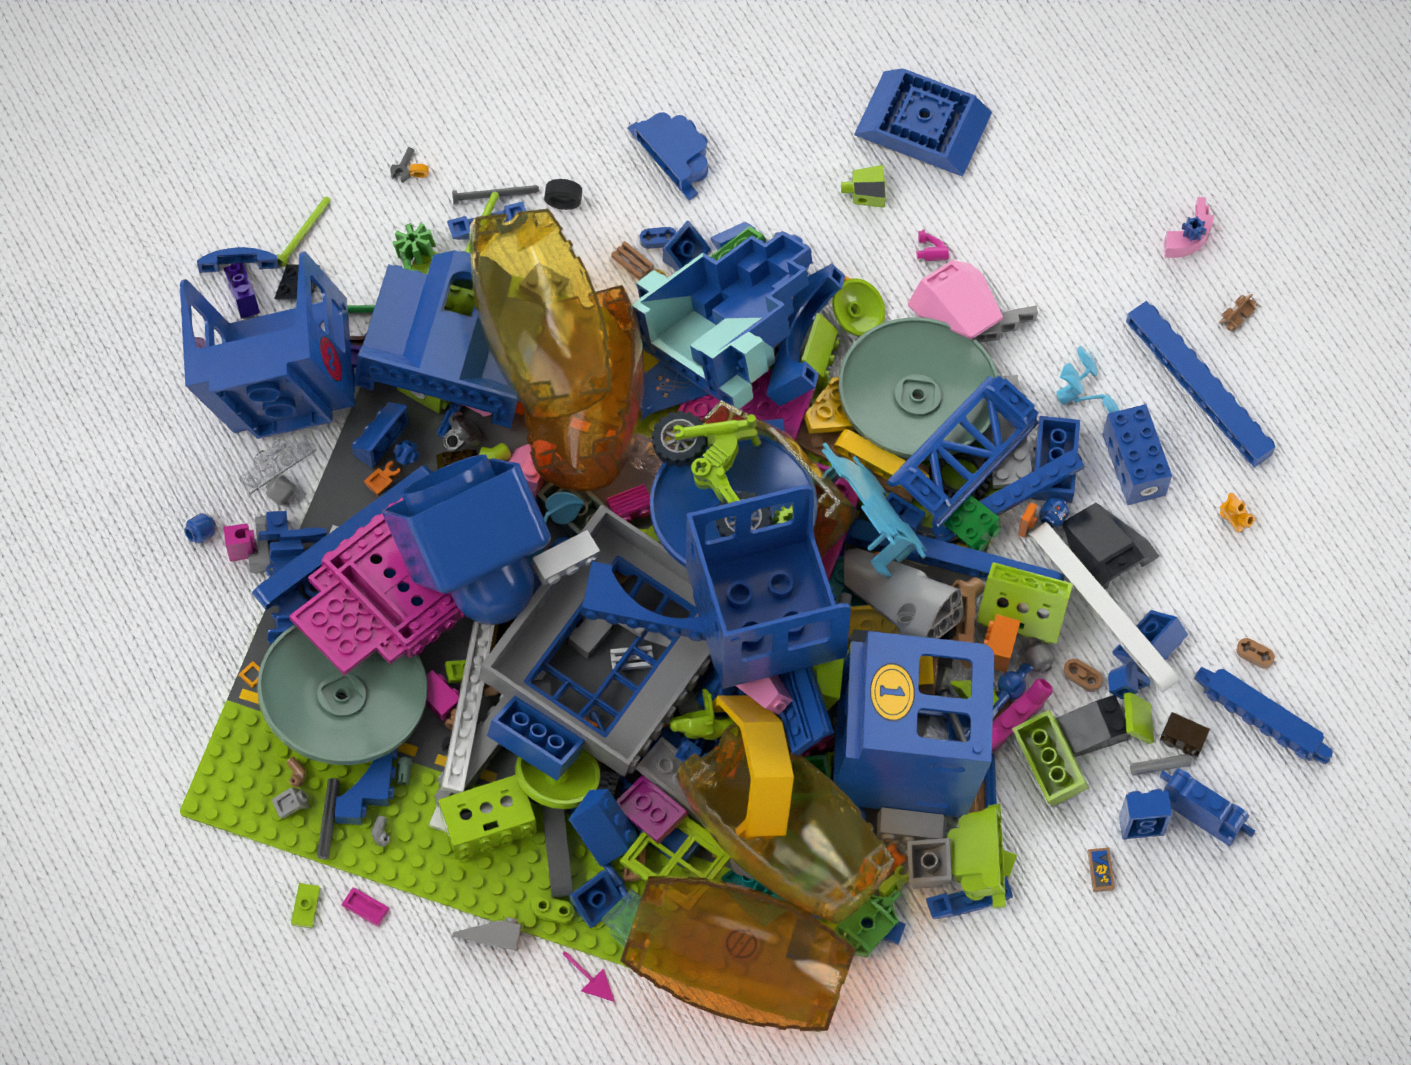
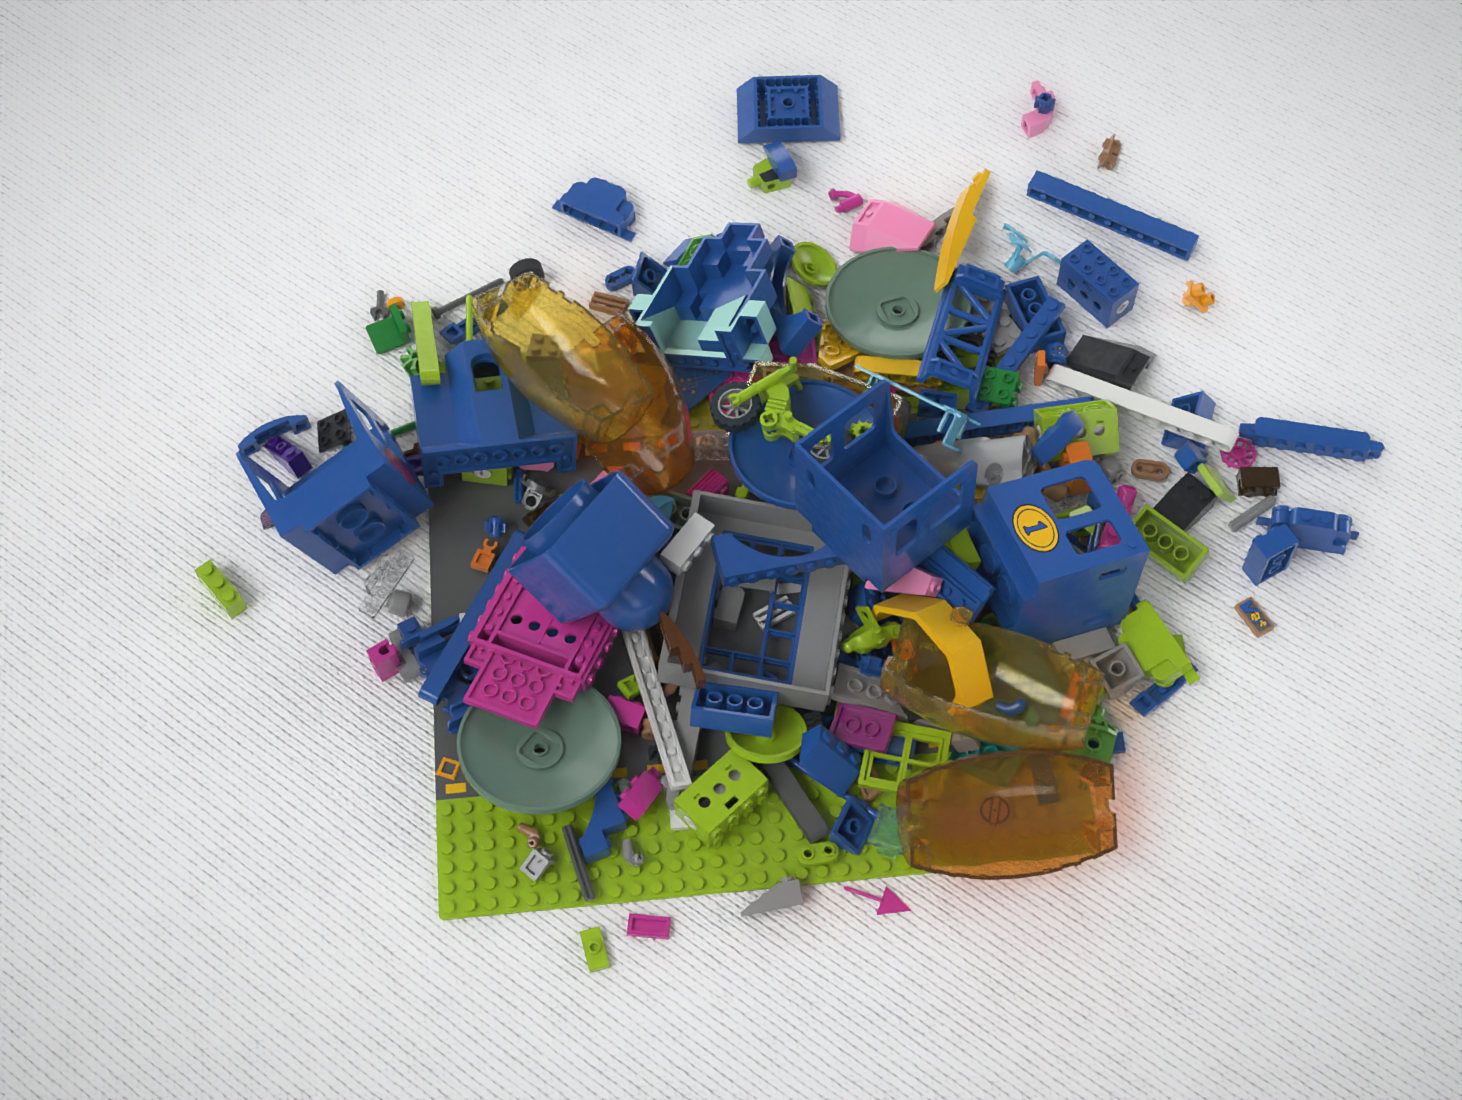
camera: 20 degrees left, 5 degrees down
(118, 402) = (221, 589): none -> lime brick
(200, 528) = (343, 664): blue head -> none
(282, 259) = (318, 391): lime bar -> none
(381, 434) = (466, 519): blue slope -> none
(399, 198) = (389, 332): none -> green bracket
(416, 779) = (641, 793): none -> dark pink hinge
(422, 231) = (425, 343): none -> lime beam
(507, 655) = (679, 645): none -> reddish brown slope
(785, 745) = (961, 616): none -> clear yellow tile
(800, 856) = (1013, 709): none -> blue arm
(881, 177) = (780, 161): none -> blue slope
(990, 604) = (1057, 437): none -> blue slope
(1026, 333) = (959, 229): none -> yellow slope
(1184, 696) = (1238, 454): none -> dark pink wheel
(1255, 653) = (1273, 396): medium nougat beam -> none

